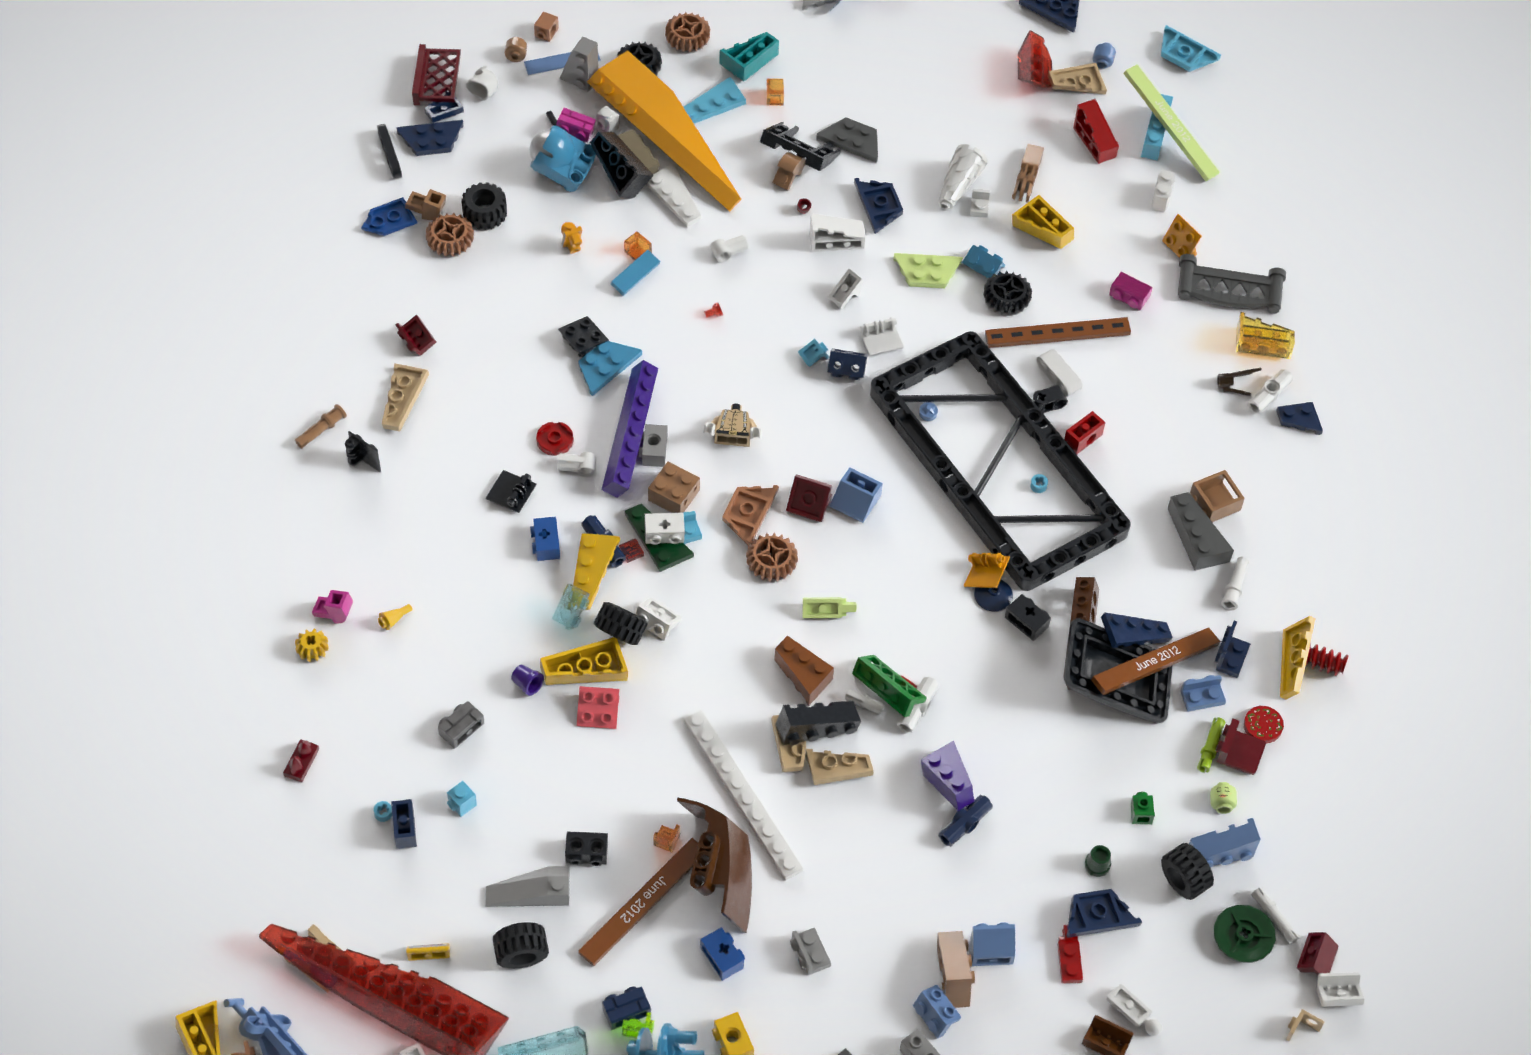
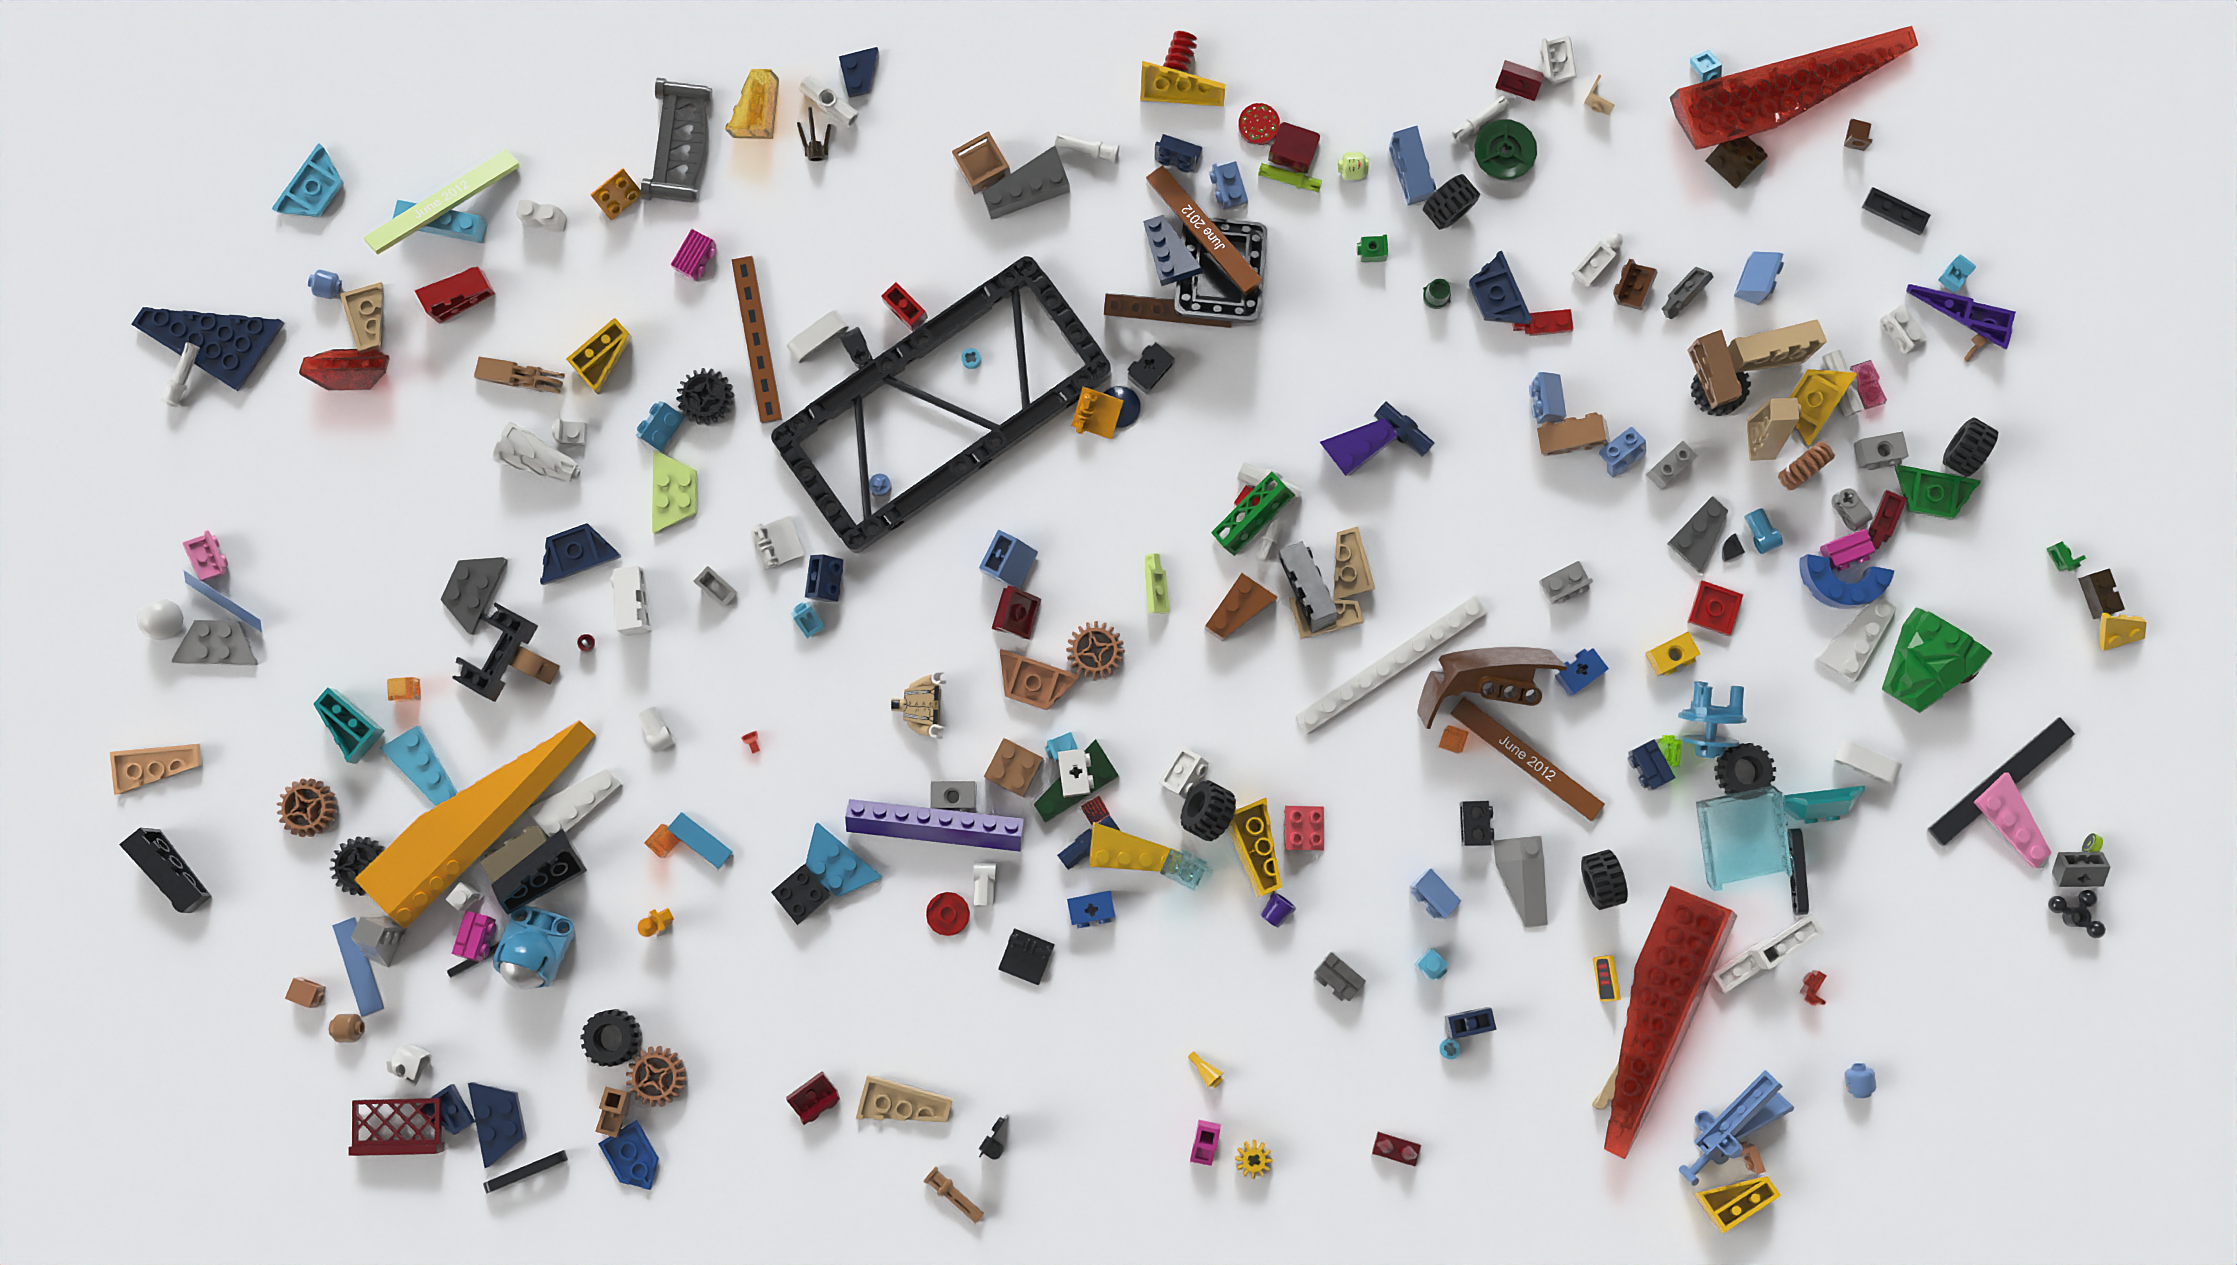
camera: 85 degrees left, 25 degrees up
(524, 804) = (1435, 894): none -> medium blue slope

